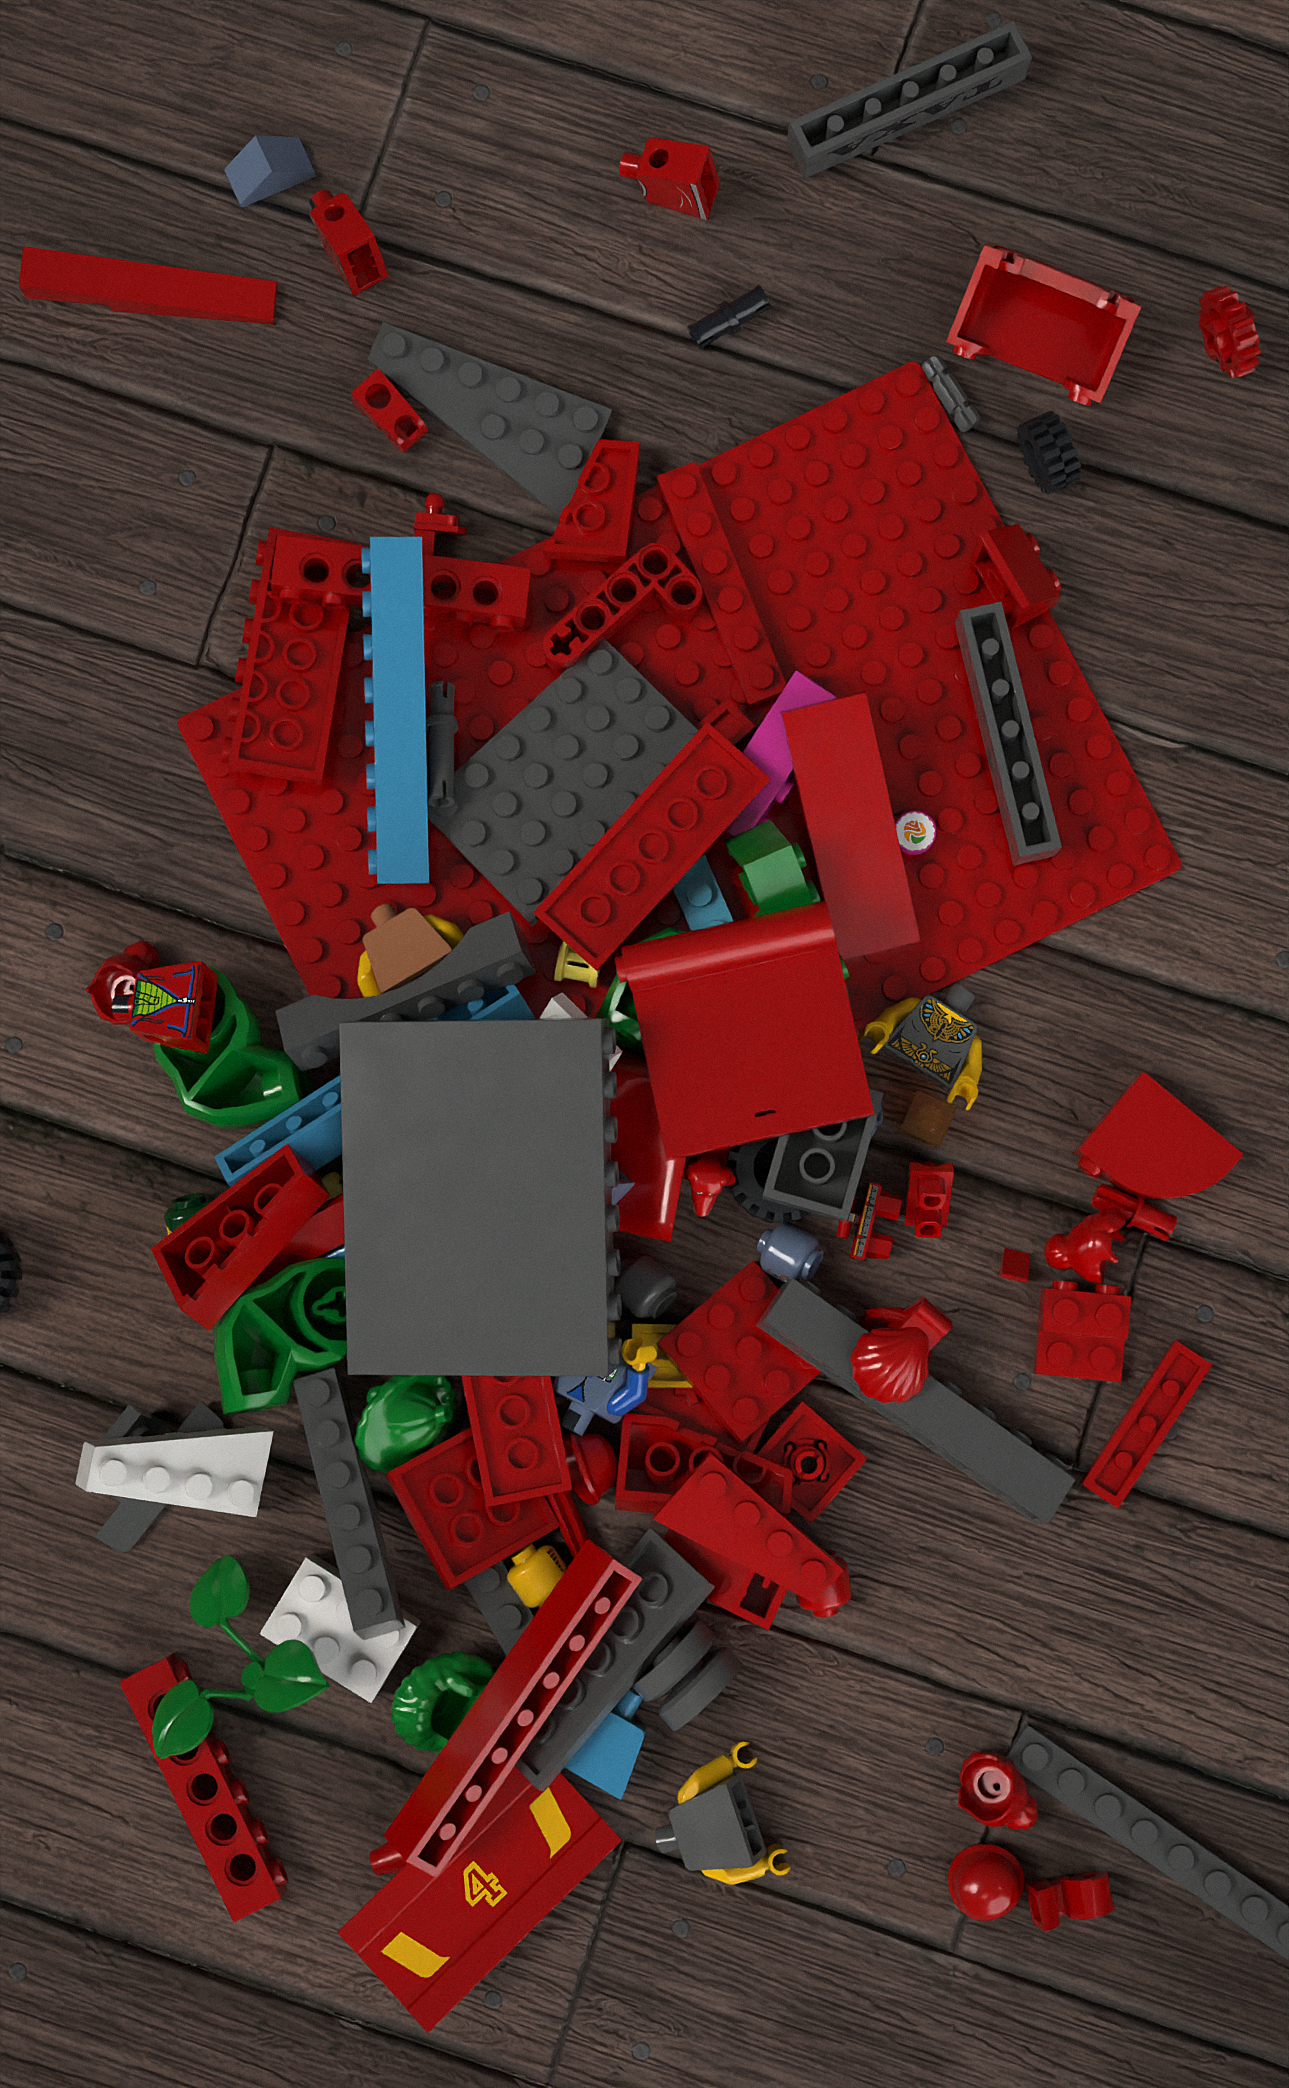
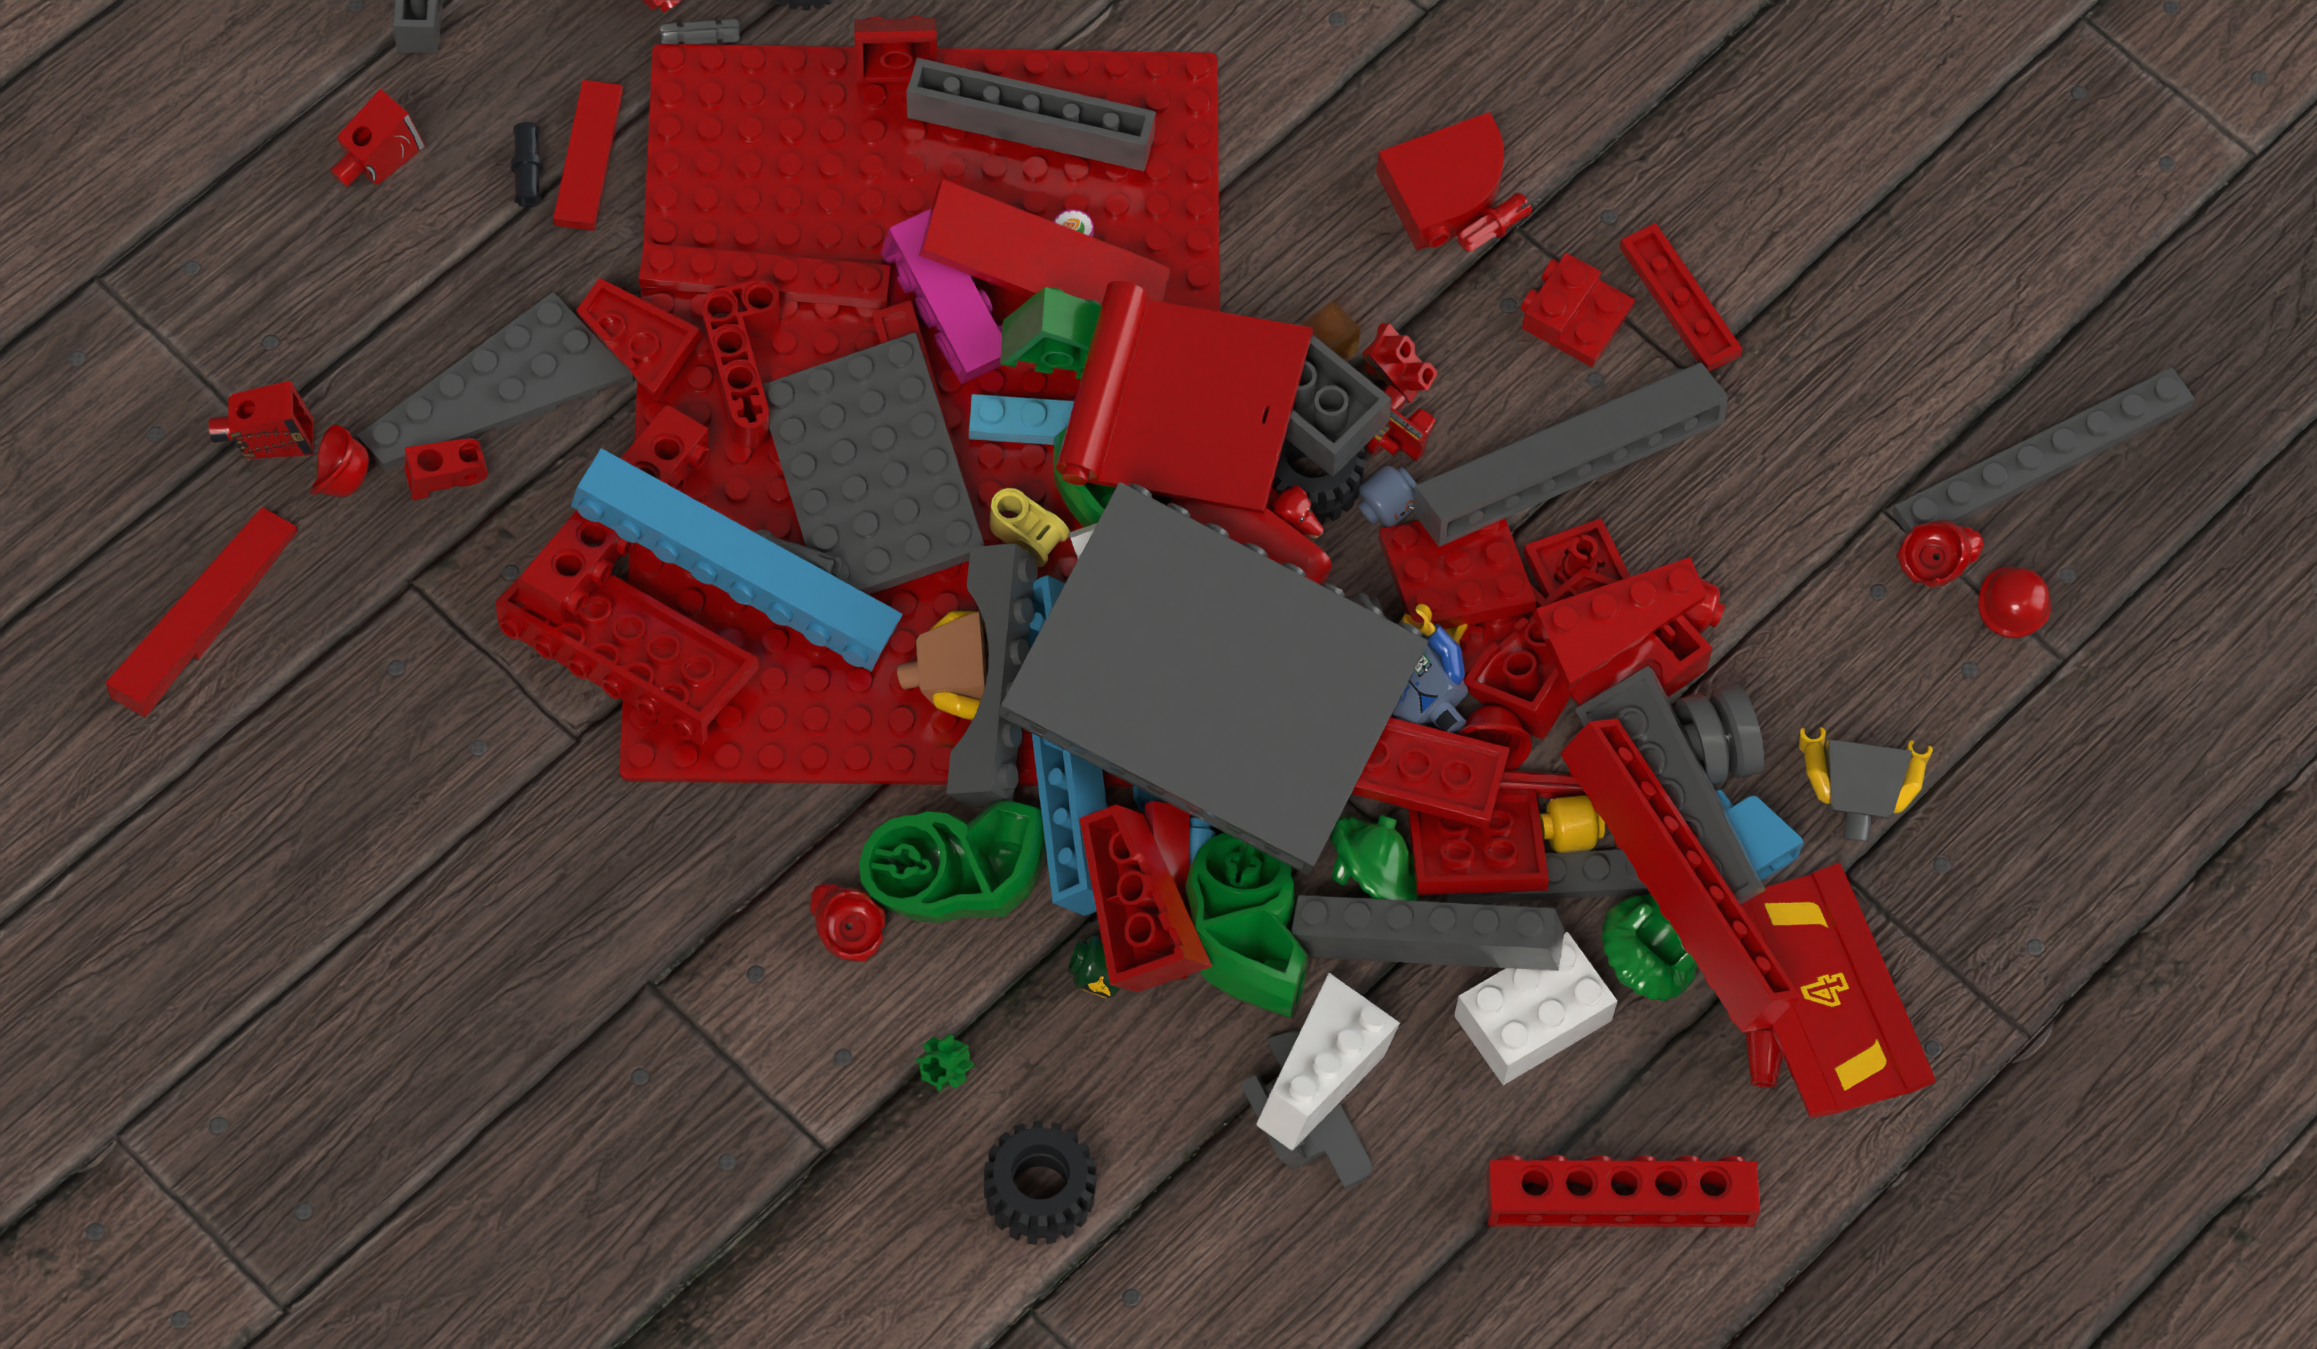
camera: 70 degrees left, 20 degrees down
(36, 1136) = (944, 1062): none -> green gear
(171, 1006) = (897, 869): red torso -> none
(268, 167) = (152, 467): sand blue slope -> none
(277, 1683) = (1556, 1155): green plant -> none
(342, 327) = (340, 464): none -> red helmet
(433, 522) = (567, 476): red piece -> none
(652, 846) = (977, 415): red plate -> none
(770, 365) = (588, 155): none -> red tile
(895, 1355) = (1520, 432): red animal -> none
(933, 1041) = (1271, 290): torso -> none
(1015, 1265) = (1493, 337): red piece -> none
(1077, 1897) = (2058, 542): red leg -> none
(1087, 1245) = (1505, 266): red piece -> none

